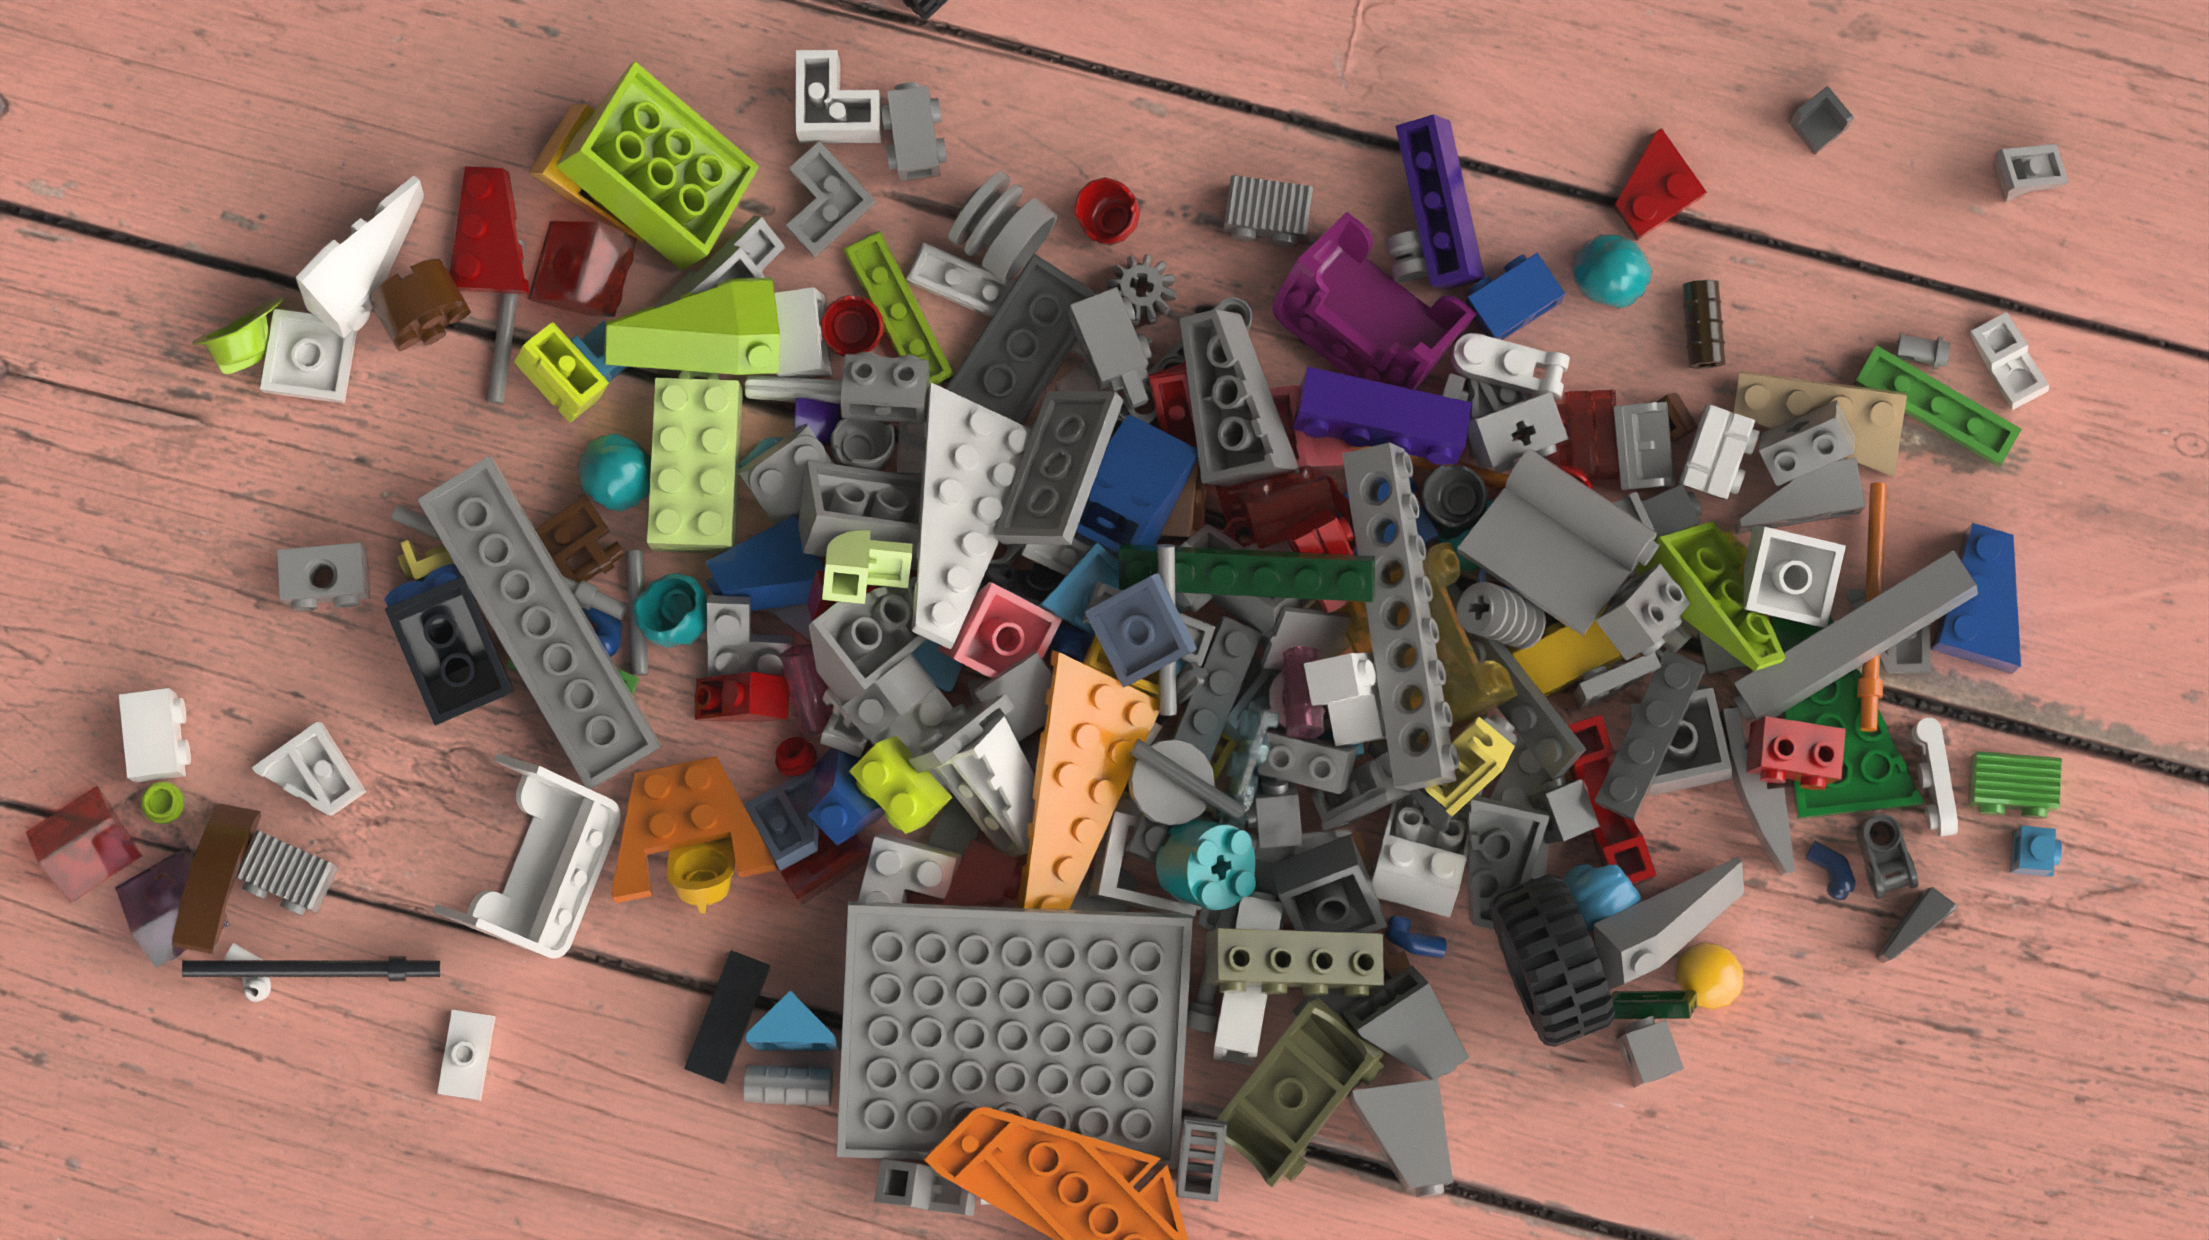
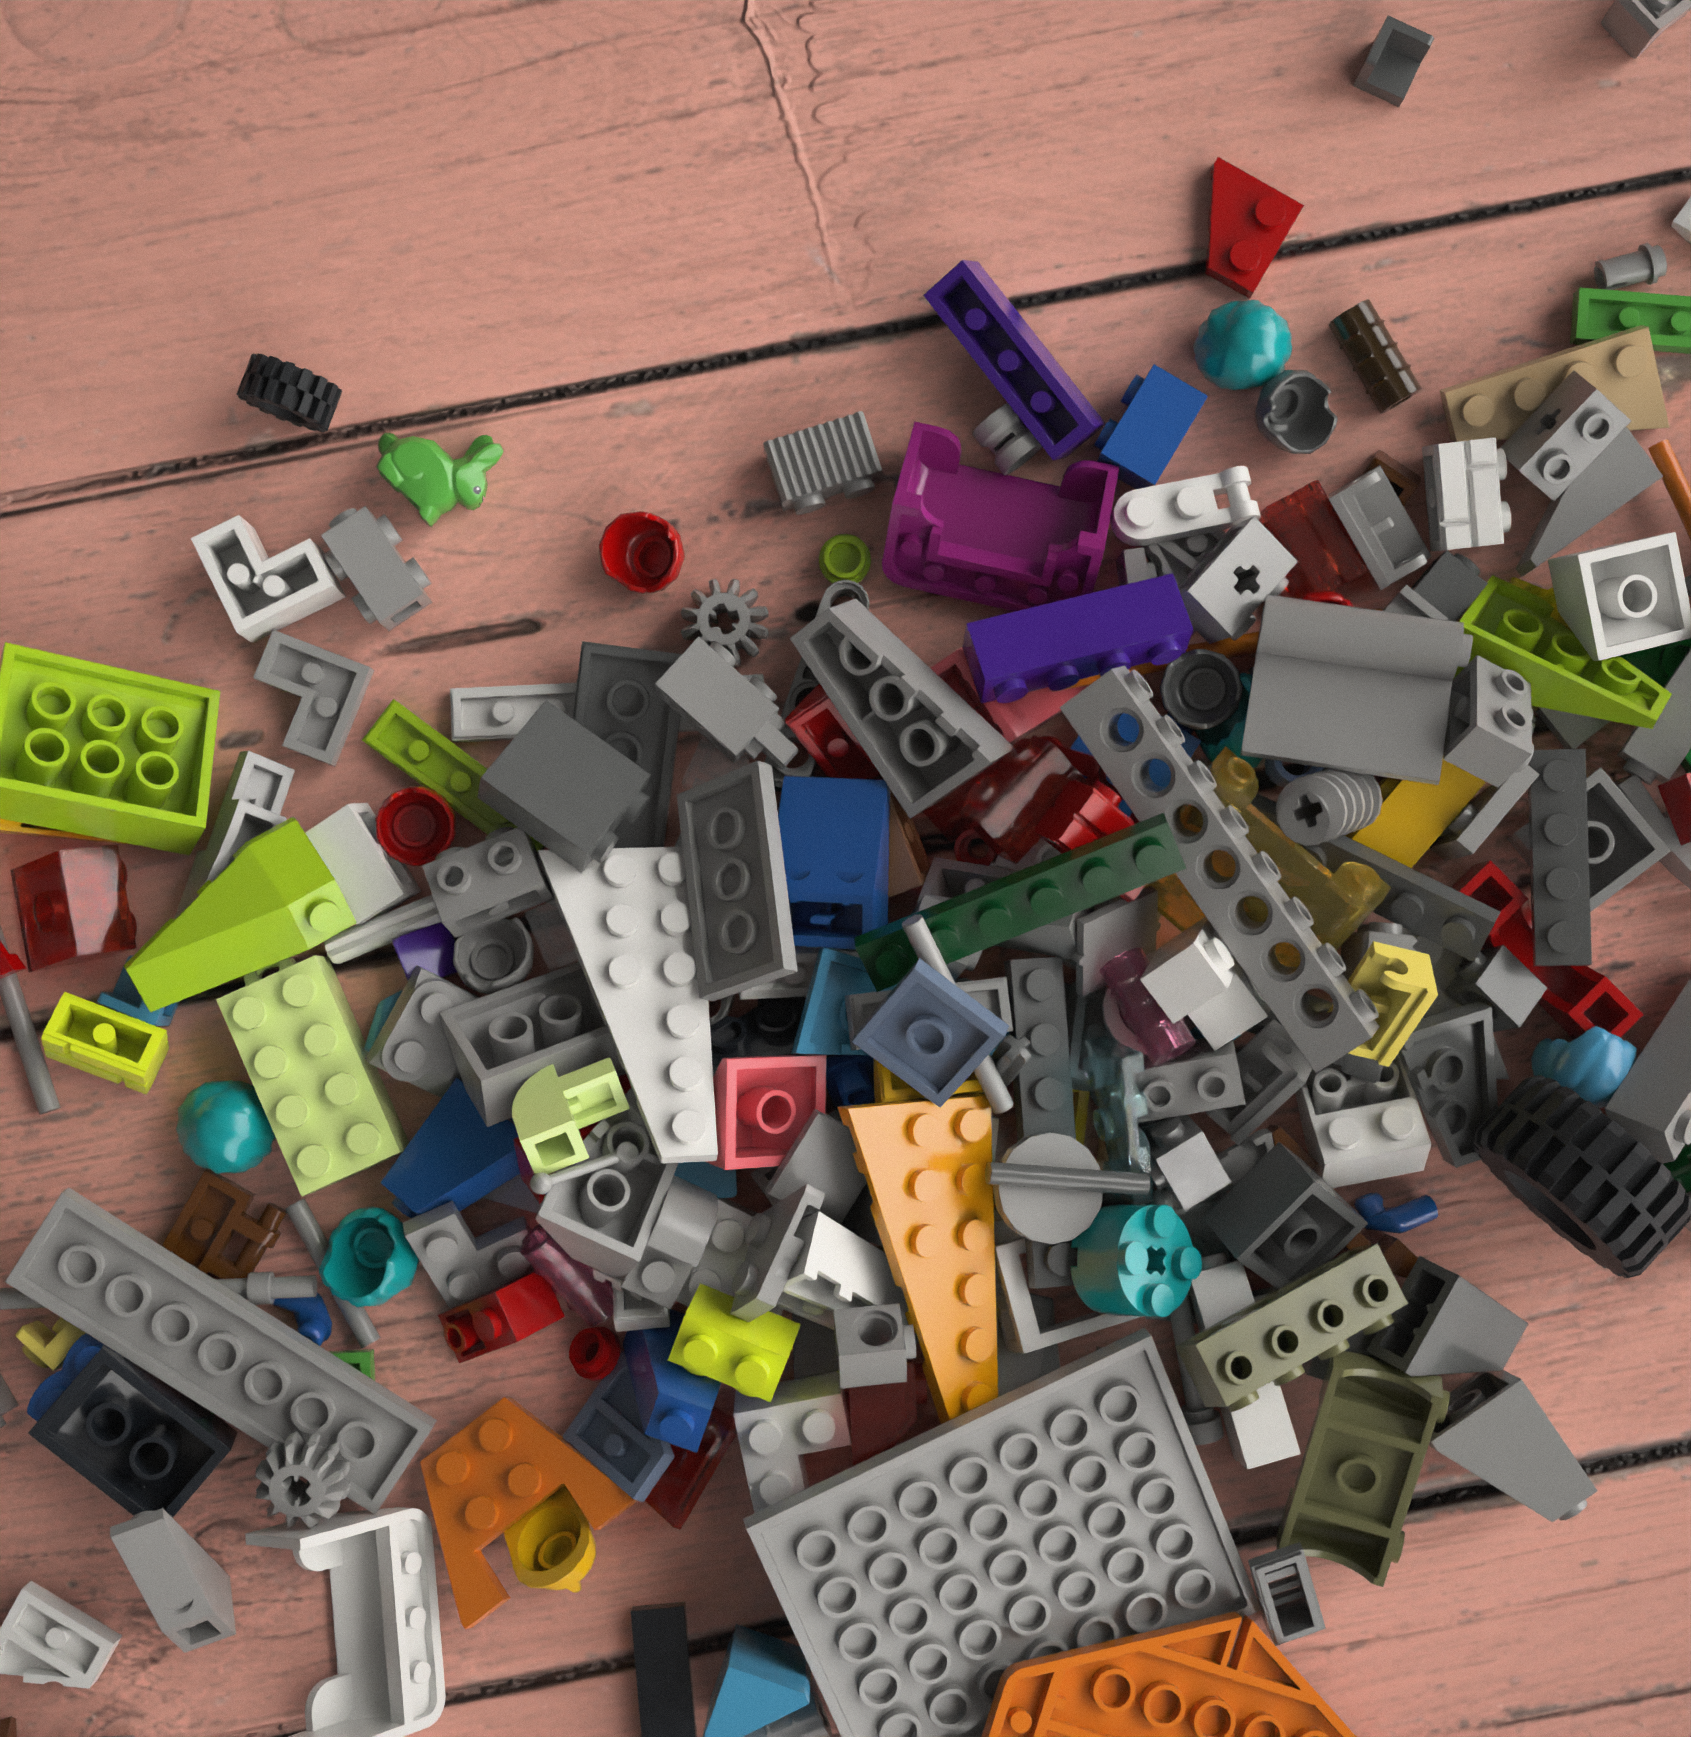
camera: 30 degrees left, 5 degrees up
(432, 761) = (177, 1579): none -> light grey slope
(563, 748) = (289, 1494): none -> light grey gear
(888, 616) = (624, 1155): none -> light grey hinge
(972, 347) = (565, 787): none -> dark grey brick
(985, 89) = (432, 477): none -> bright green animal
(995, 221) = (519, 626): light grey wheel -> none
(995, 829) = (866, 1364): none -> light grey brick
(1250, 285) = (844, 558): none -> lime plate
(1625, 335) = (1295, 412): none -> dark grey hair

